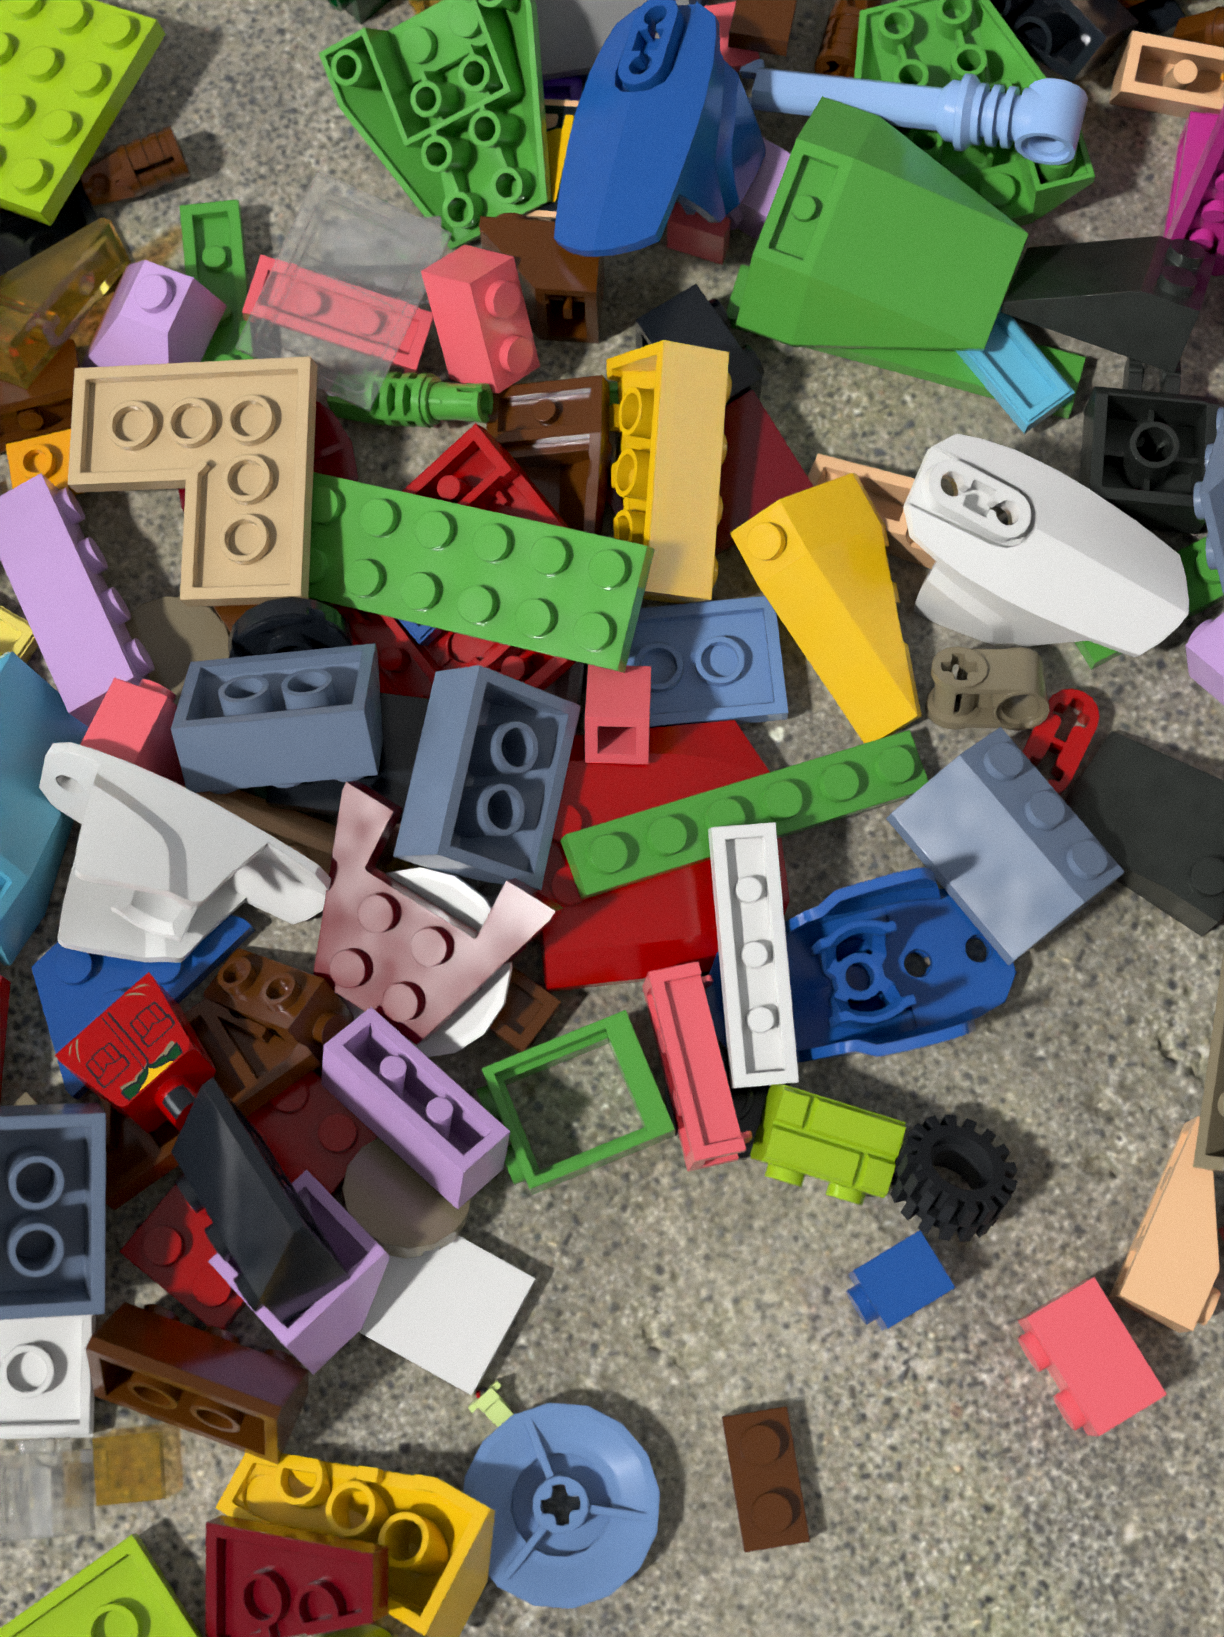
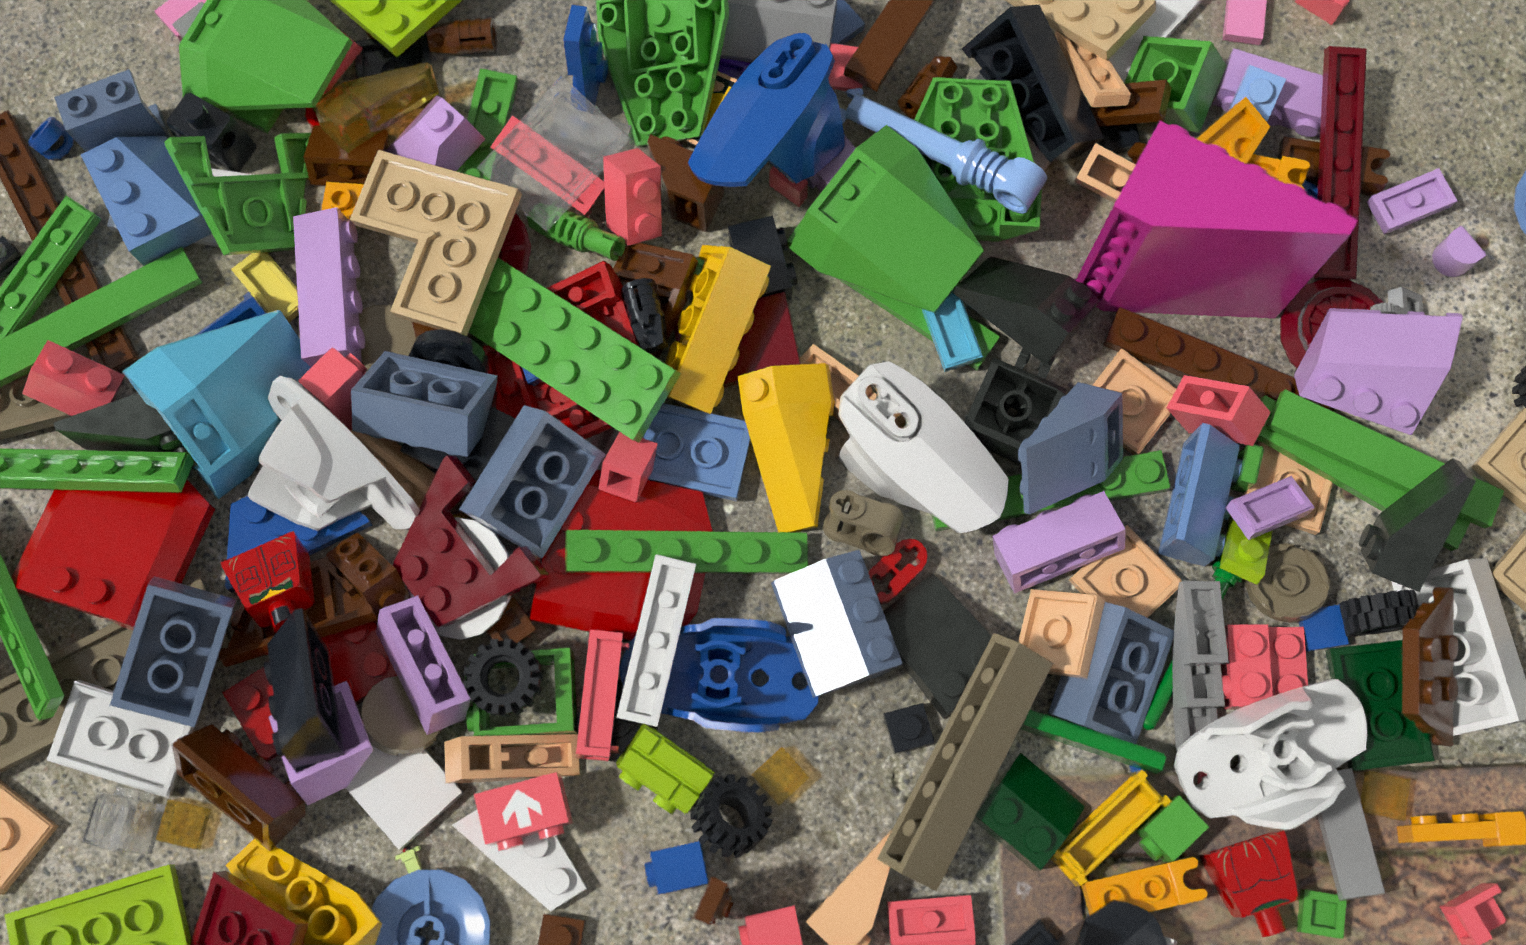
camera: 15 degrees right, 0 degrees up
(335, 122) = (584, 53): none -> blue wing
(517, 1056) = (485, 660): none -> black tyre
(572, 496) = (646, 314): none -> black hinge
(589, 1203) = (509, 757): none -> light nougat slope
(645, 1271) = (523, 810): none -> coral brick
(657, 1326) = (537, 866): none -> white wing
(980, 1309) = (715, 902): none -> reddish brown hinge
(997, 1098) = (780, 776): none -> clear yellow tile
(1158, 966) = (908, 728): none -> black plate

